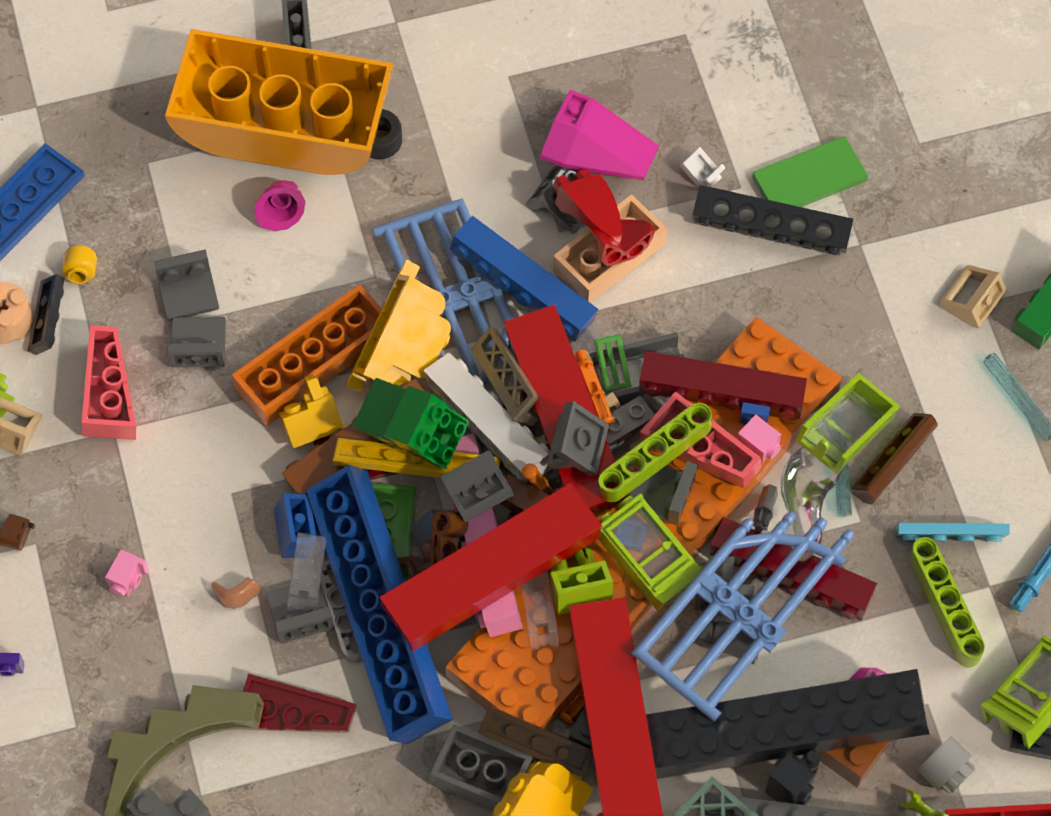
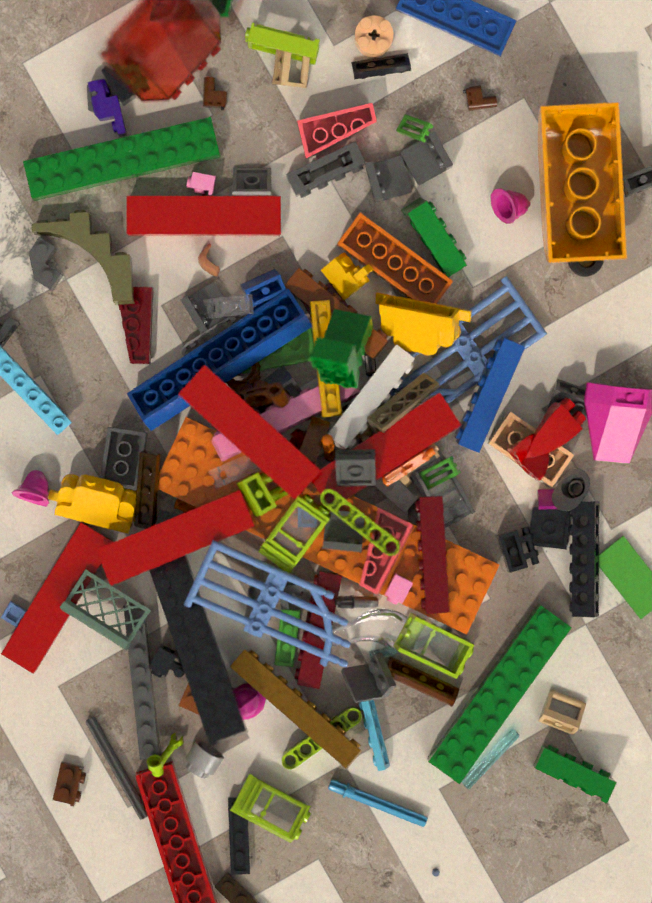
camera: 75 degrees right, 25 degrees up
(54, 674) = (121, 159): none -> green brick
(79, 264) = (425, 77): yellow head -> none
(130, 215) = (476, 101): none -> reddish brown piece
(145, 292) = (423, 132): none -> bright green tile
(147, 510) = (251, 182): none -> light grey slope
(167, 452) = (322, 181): none -> dark grey brick
(170, 583) = (204, 215): none -> red tile
(288, 299) = (435, 236): none -> green wedge
(476, 486) = (305, 408): dark grey bracket -> none
(677, 212) = (571, 490): none -> dark grey piece
(682, 248) = (545, 499): none -> magenta tile
(702, 168) = (615, 499): white bracket -> none
(721, 257) = (550, 528): none -> black tile
(740, 296) = (513, 552): none -> black brick
(750, 410) = (416, 581): blue tile -> none
(803, 620) = (284, 651): none -> bright green tile
(877, 511) = (369, 680): none -> dark grey bracket
(901, 615) = (299, 711): none -> pearl gold brick
(933, 363) = (498, 693): none -> green brick

